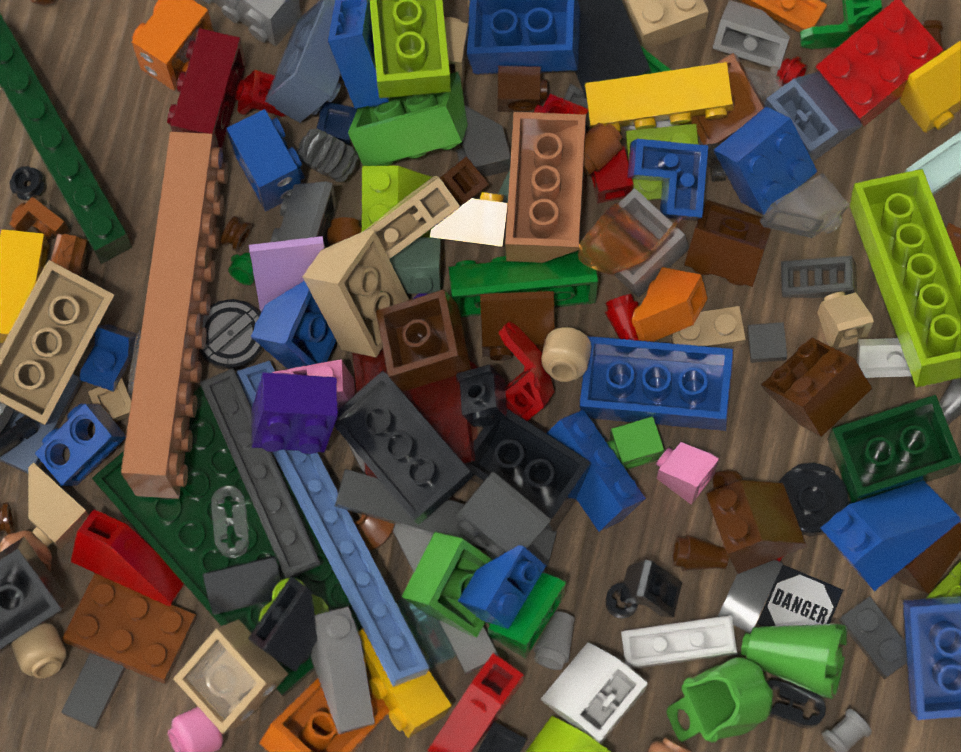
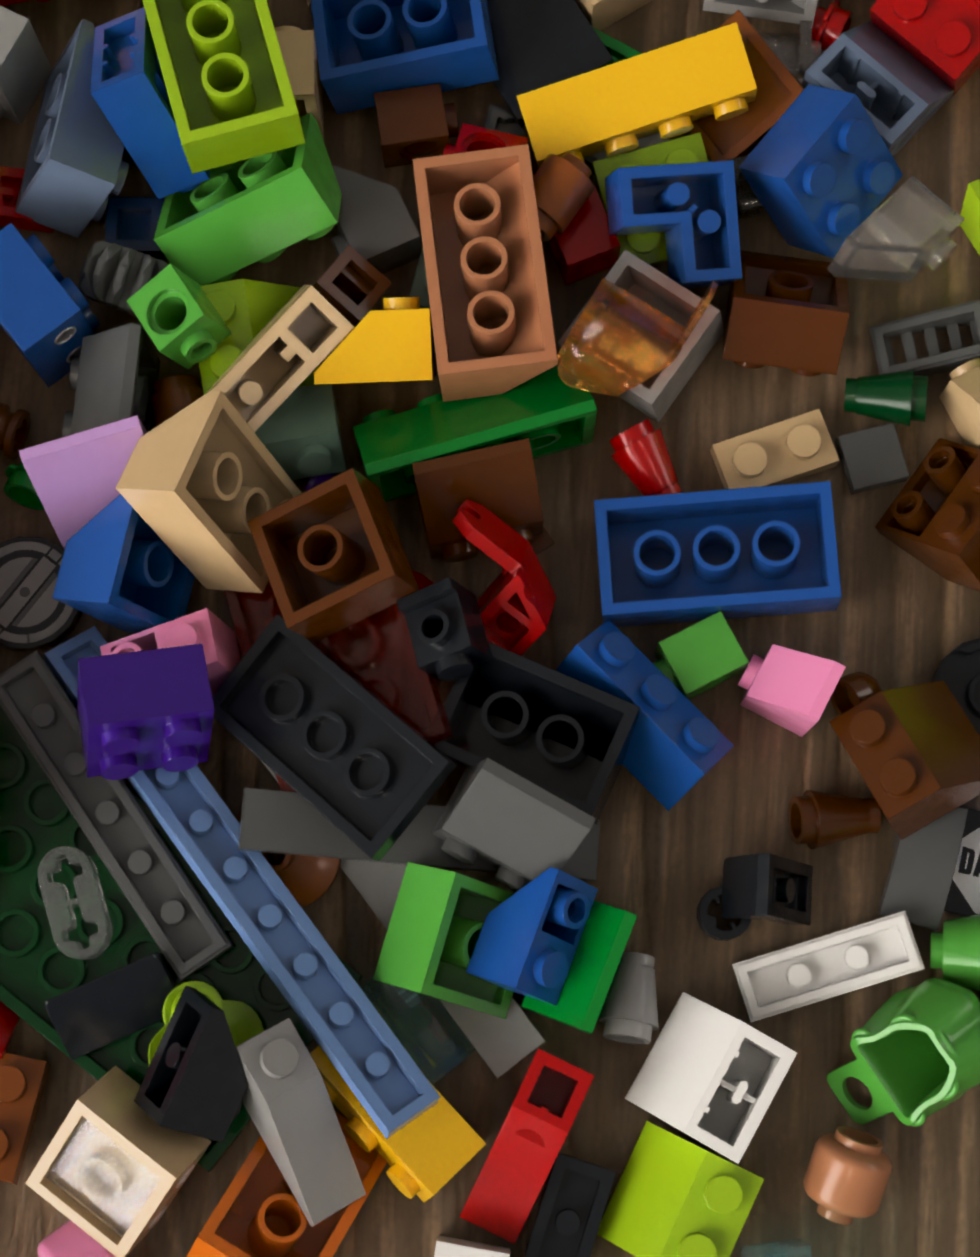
camera: 10 degrees left, 5 degrees up
(346, 174) = (163, 305): none -> bright green brick
(566, 354) = (566, 535): tan head -> none
(670, 304) = (713, 426): orange slope -> none
(783, 306) = (888, 396): none -> dark green cone

